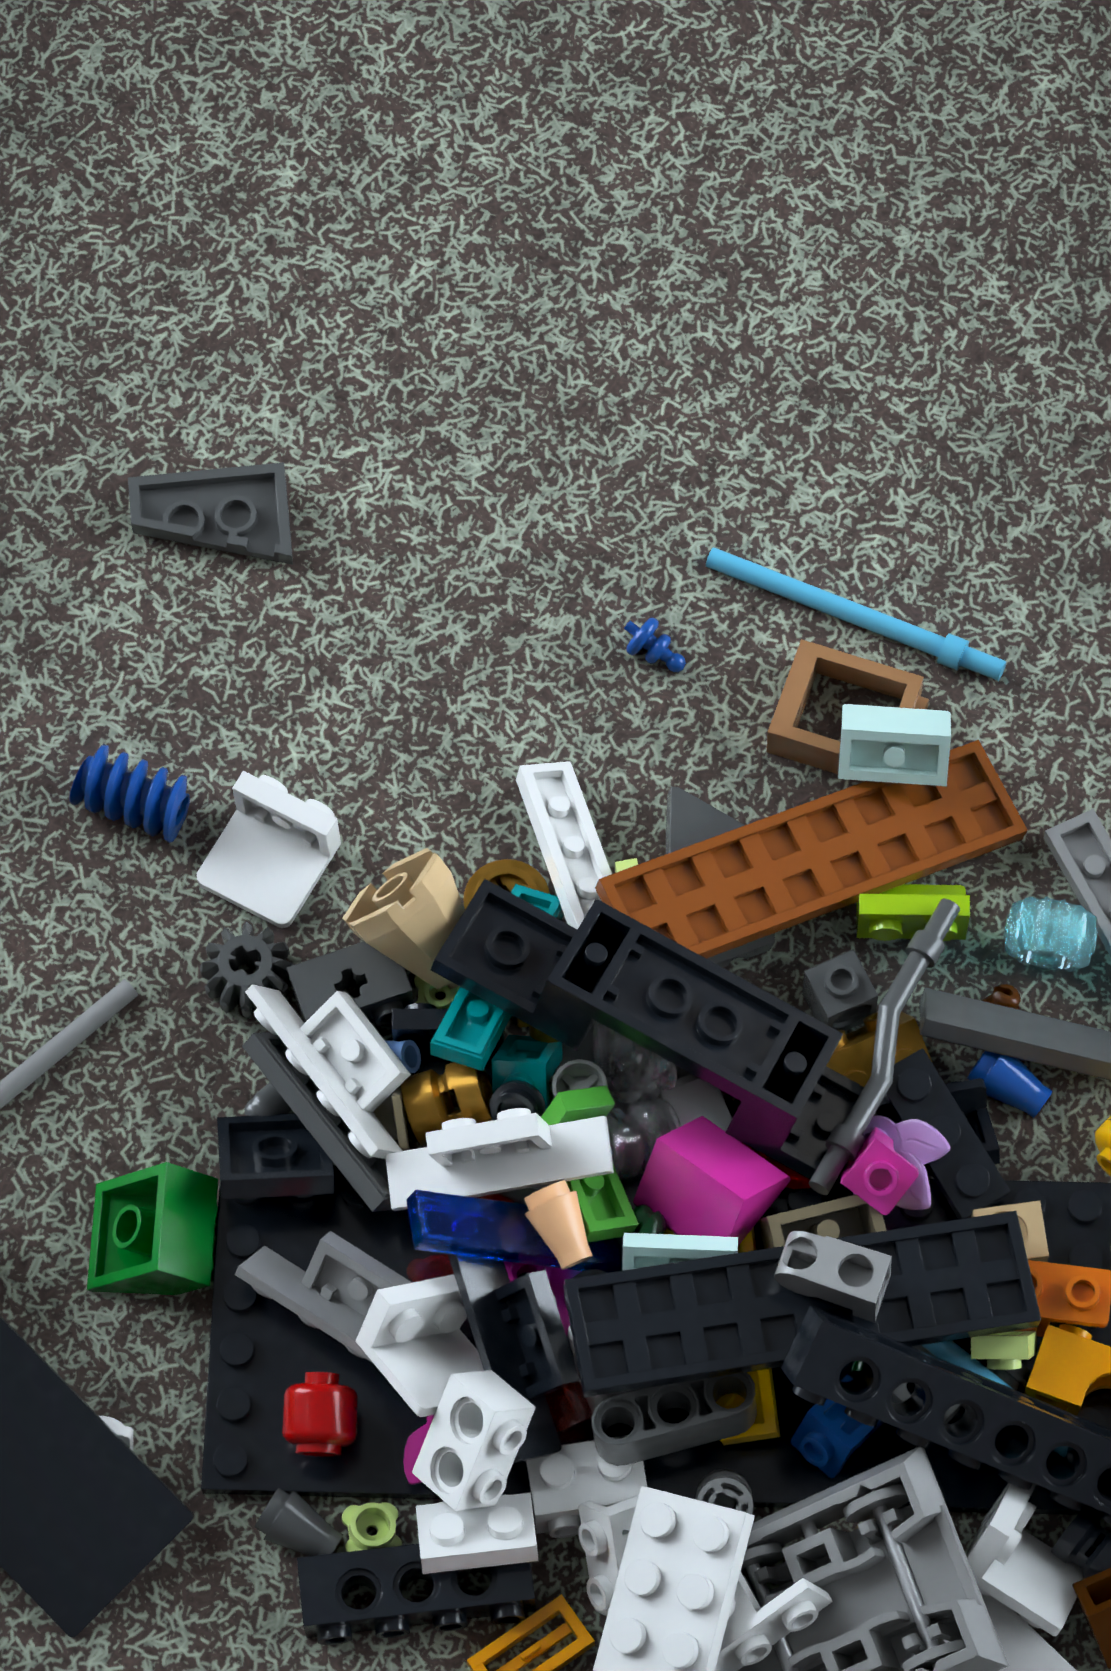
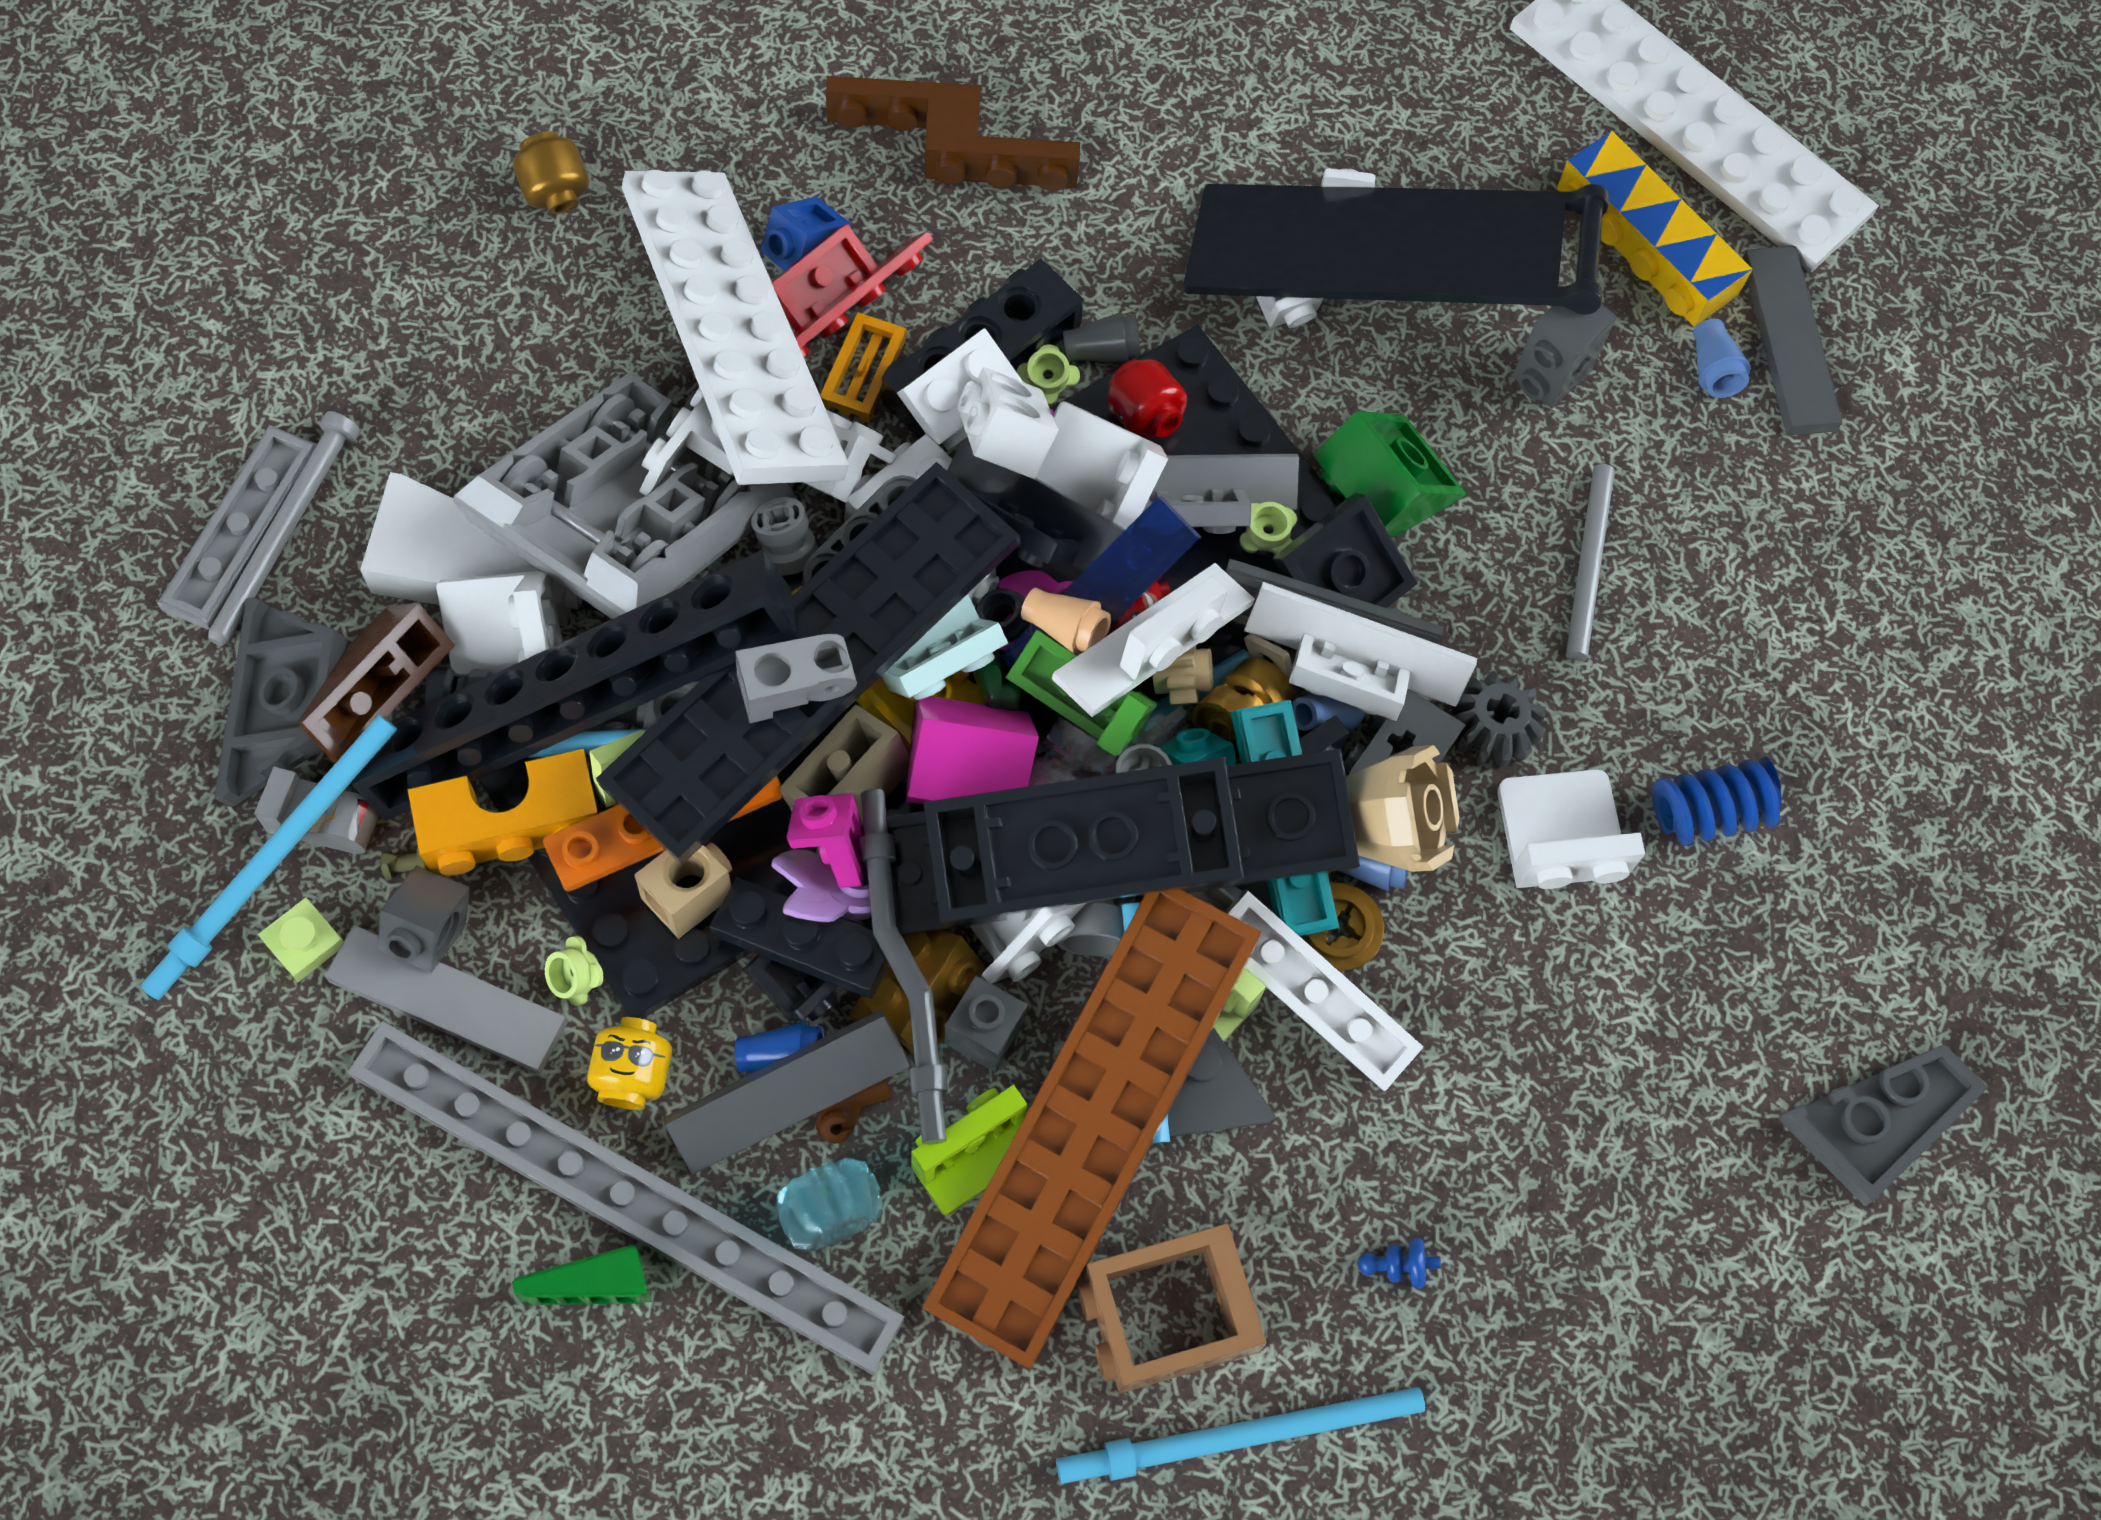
camera: 135 degrees right, 0 degrees up
(288, 1238) = (1268, 515): none -> yellowish green plate
(516, 1095) = (1180, 716): black plate -> none
(894, 745) = (1101, 1283): light aqua panel -> none

